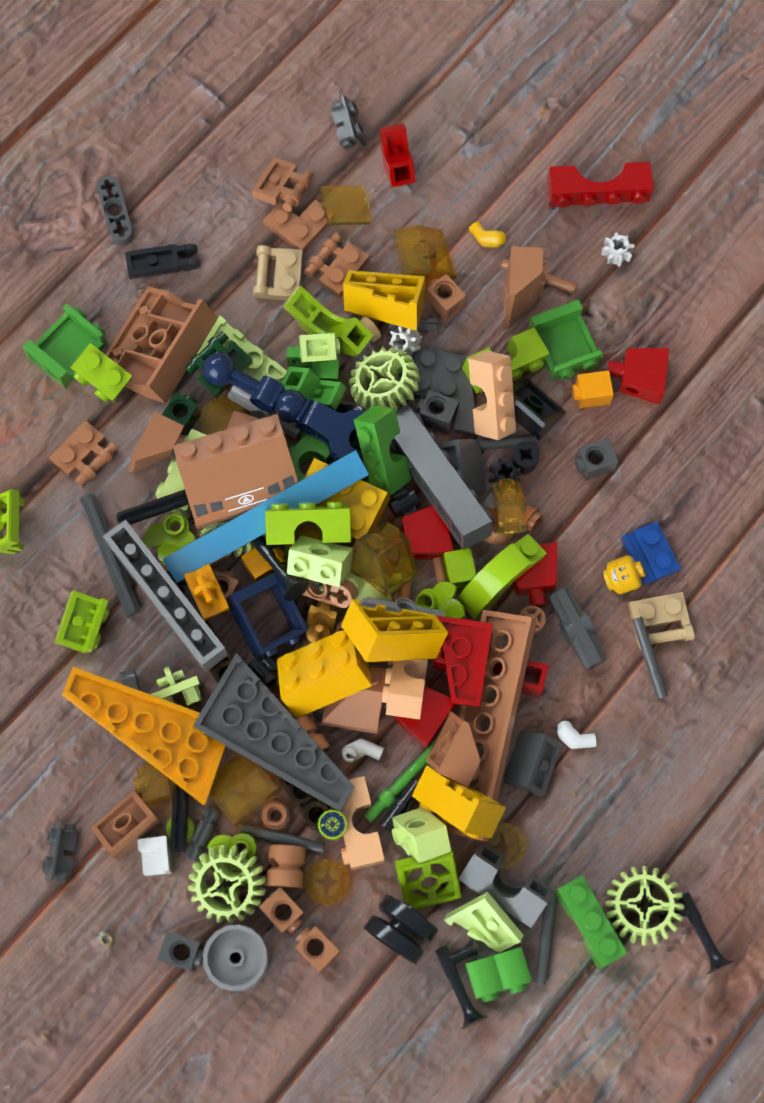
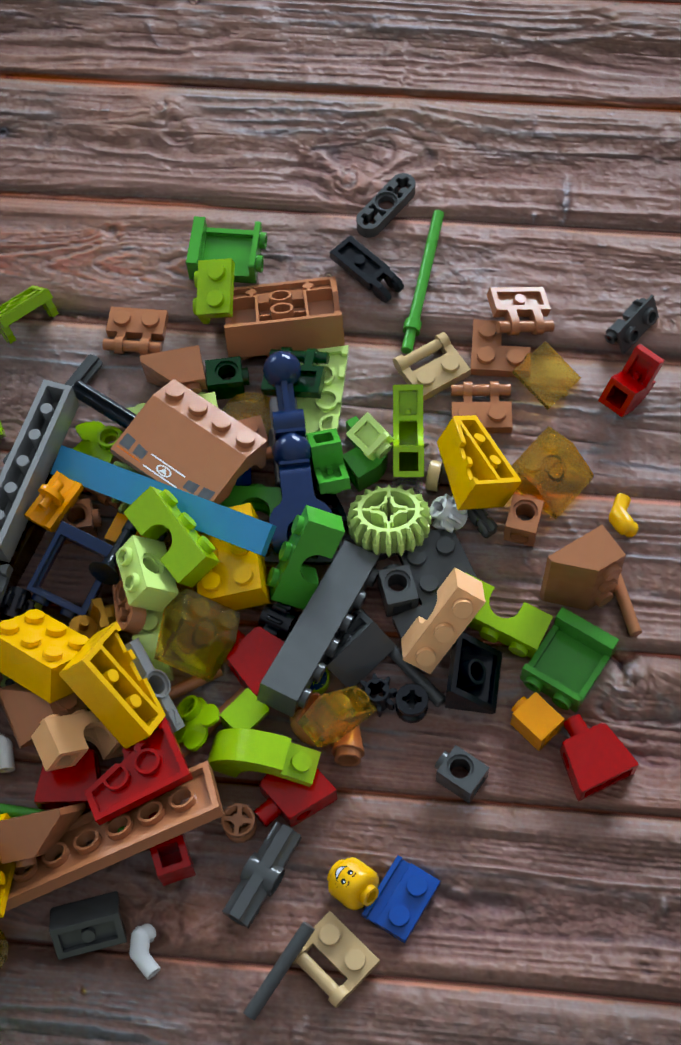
camera: 60 degrees right, 10 degrees down
(232, 261) = (413, 324): none -> bright green bar

